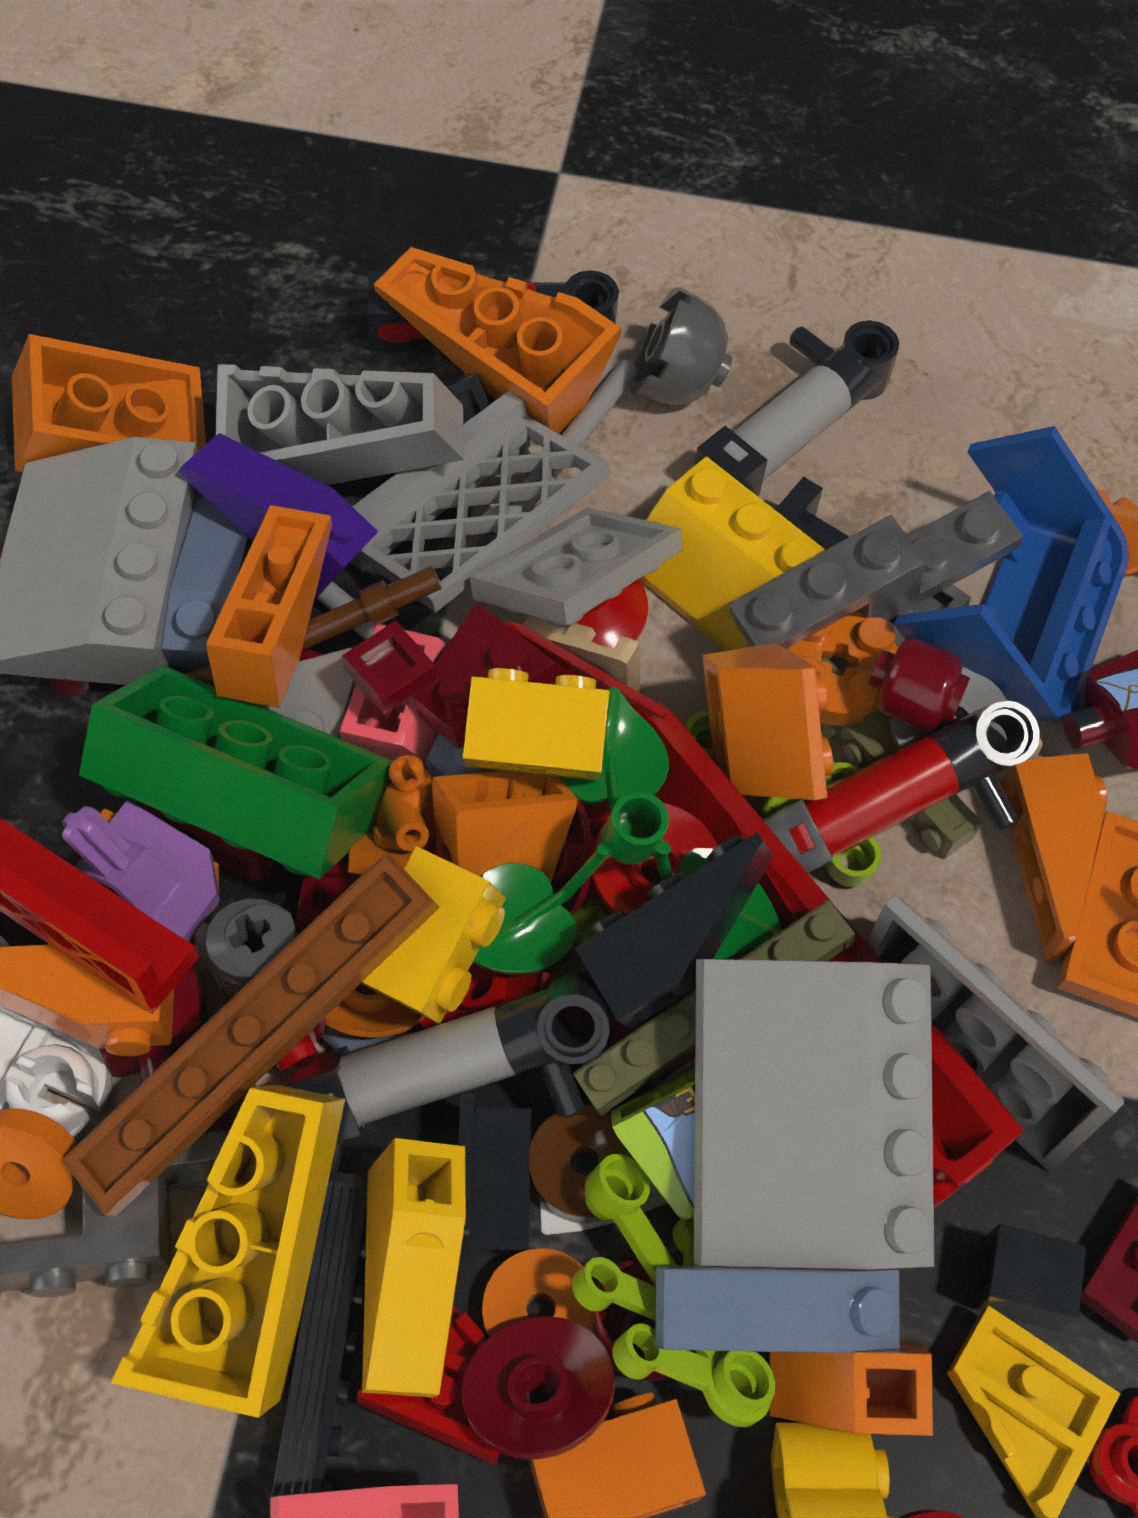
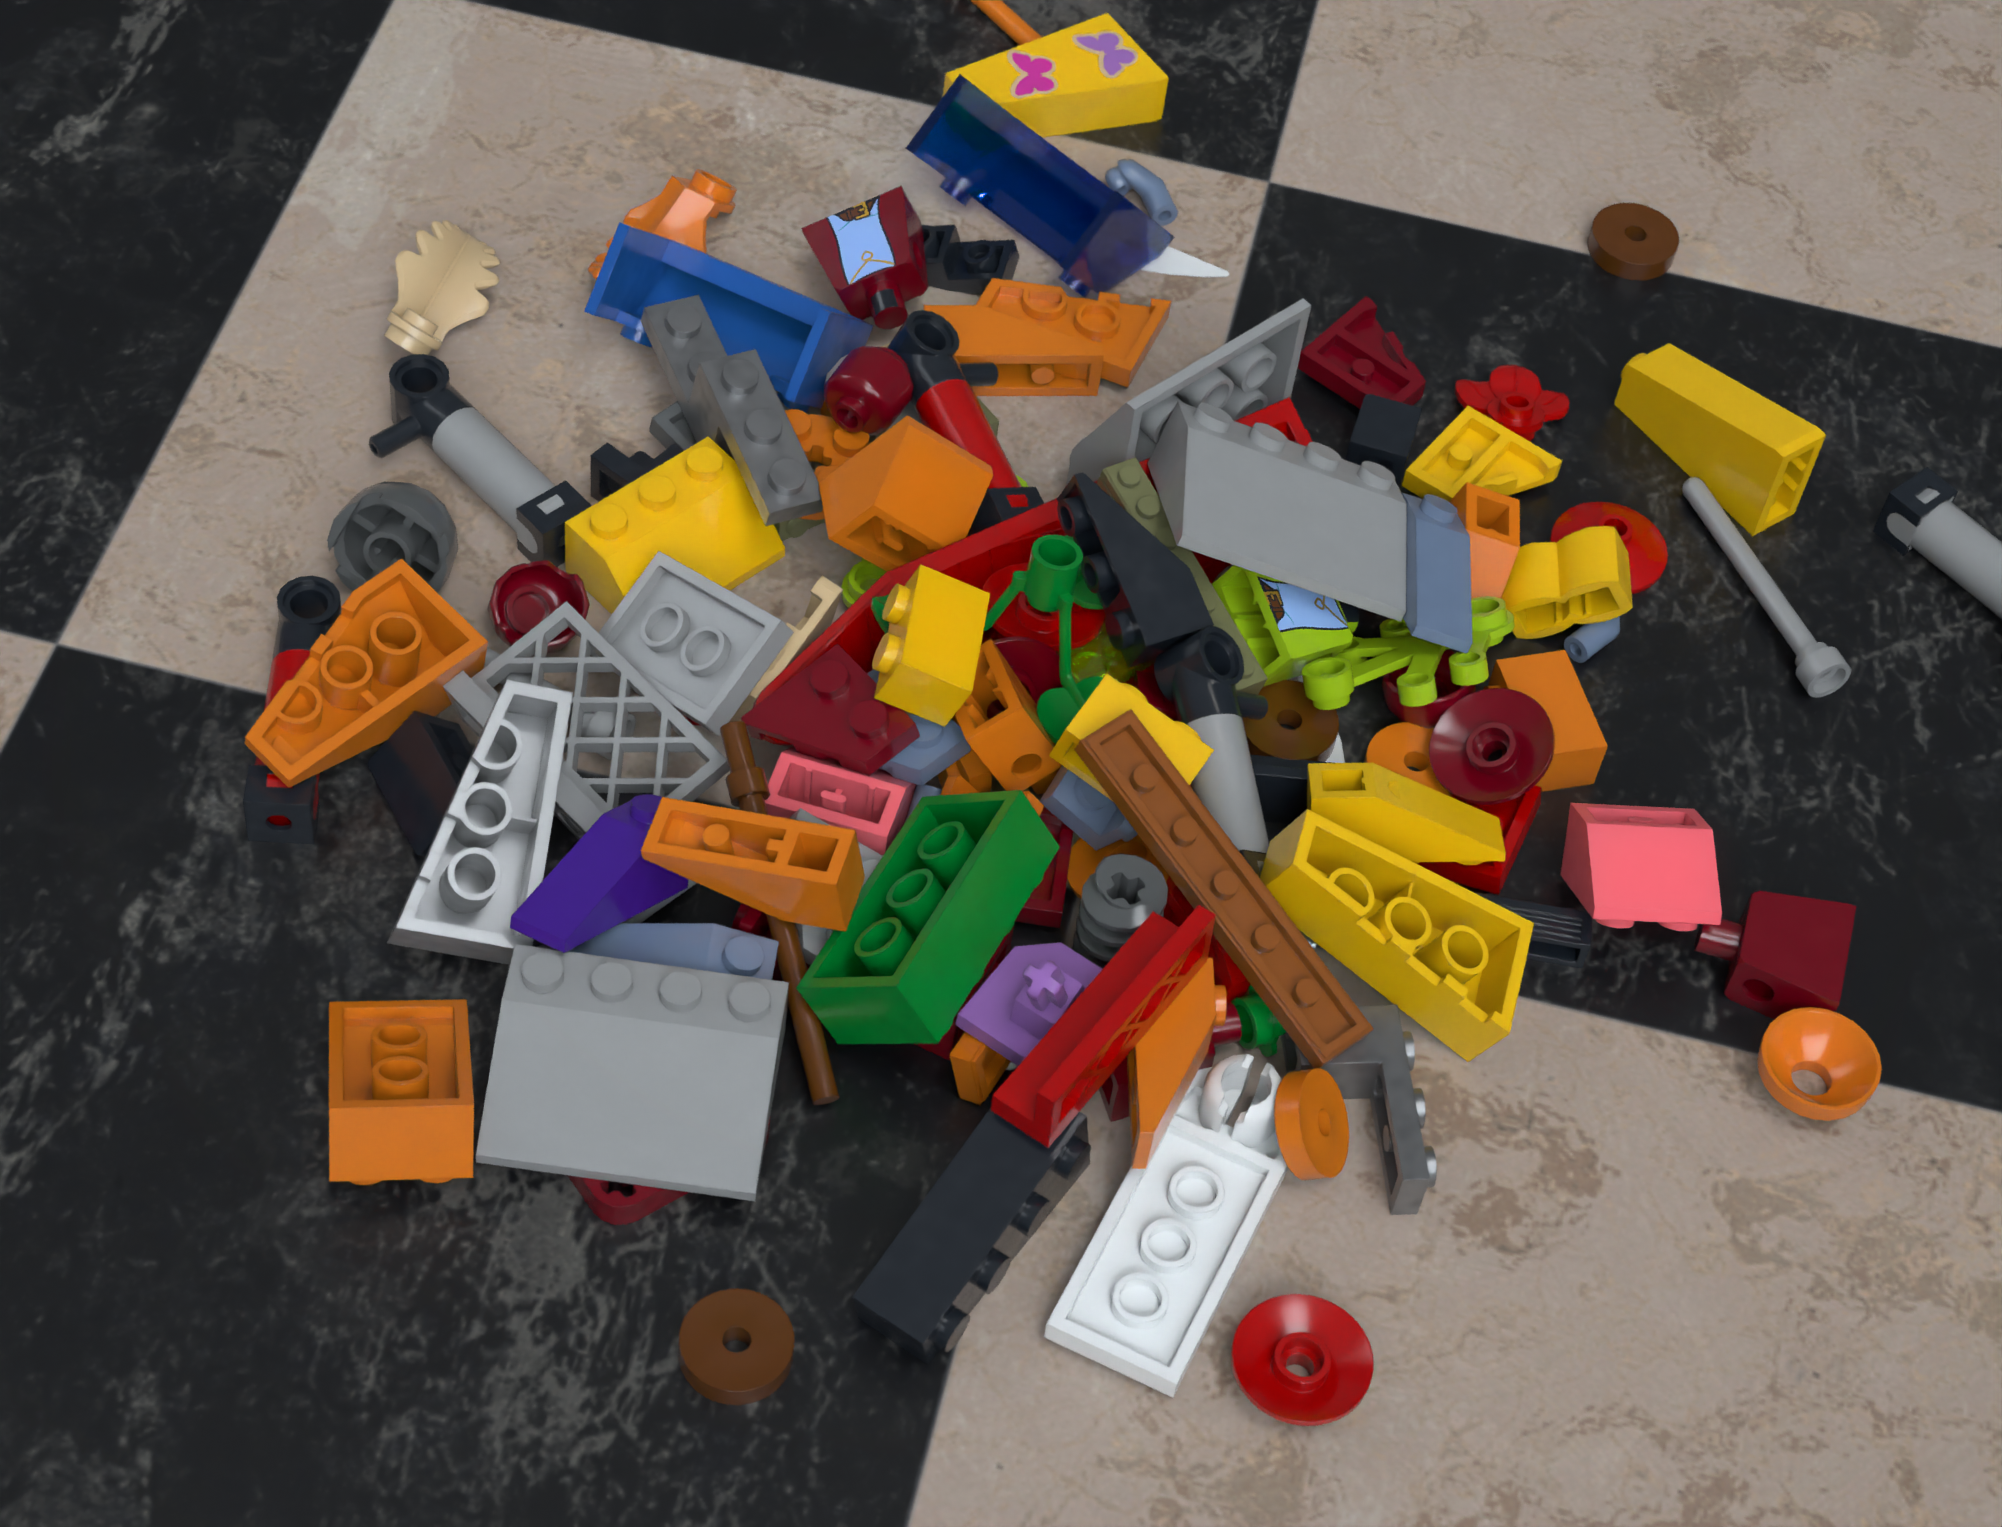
camera: 90 degrees left, 10 degrees down
(389, 666) = (844, 766): dark red tile -> none
(406, 801) = (949, 780): orange arm -> none
(633, 456) = (531, 594): none -> dark red hair
(1005, 359) = (439, 286): none -> tan plant

